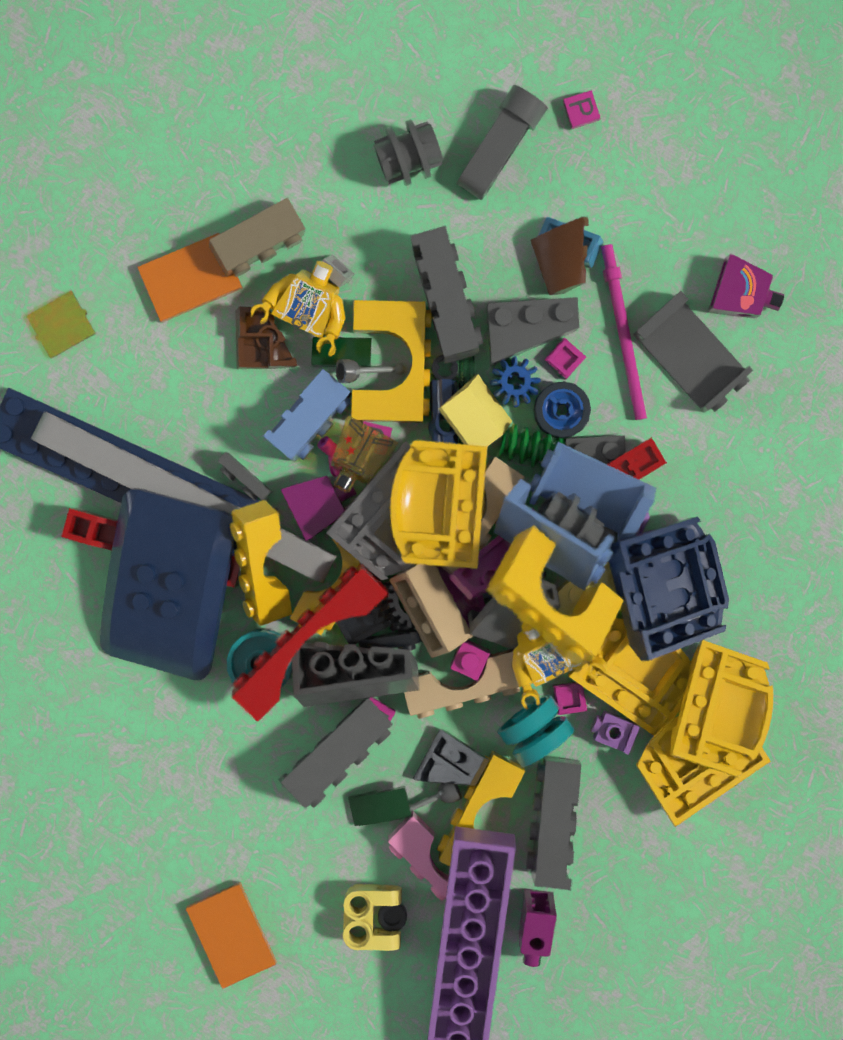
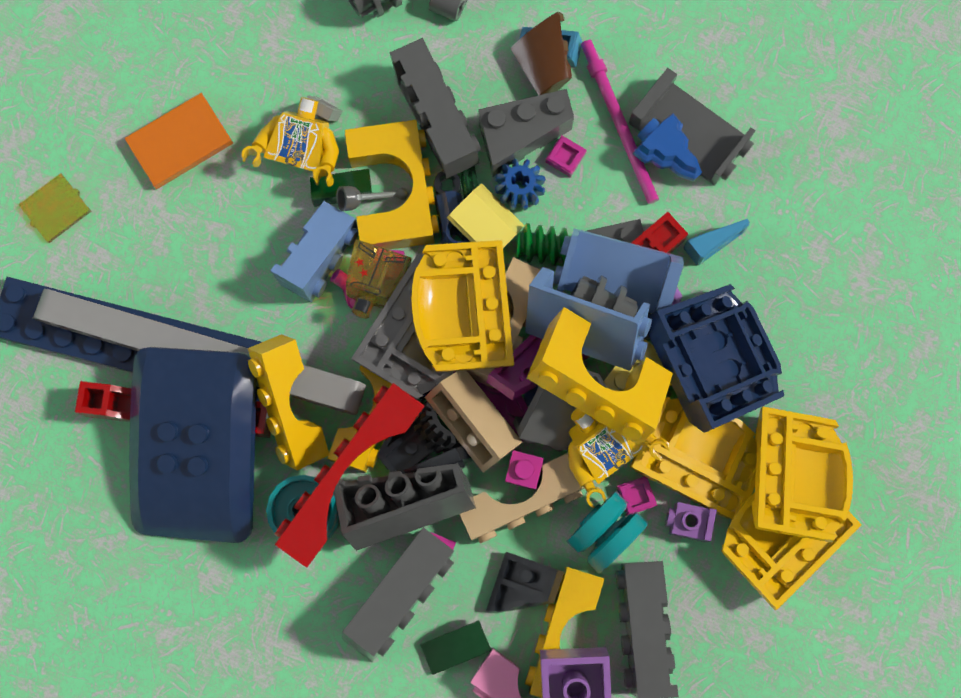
camera: 10 degrees left, 10 degrees down
(234, 469) = (249, 318): dark grey plate -> none
(257, 238) = (239, 89): dark tan brick -> none
(260, 344) = (257, 190): reddish brown slope -> none
(316, 504) = (337, 337): magenta torso -> none
(446, 792) = (525, 619): dark grey hinge -> none
(577, 409) = (573, 188): wheel -> none
(664, 370) = (667, 148): none -> blue rock
(682, 474) = (706, 245): none -> dark azure slope
(743, 290) = (729, 60): magenta torso -> none

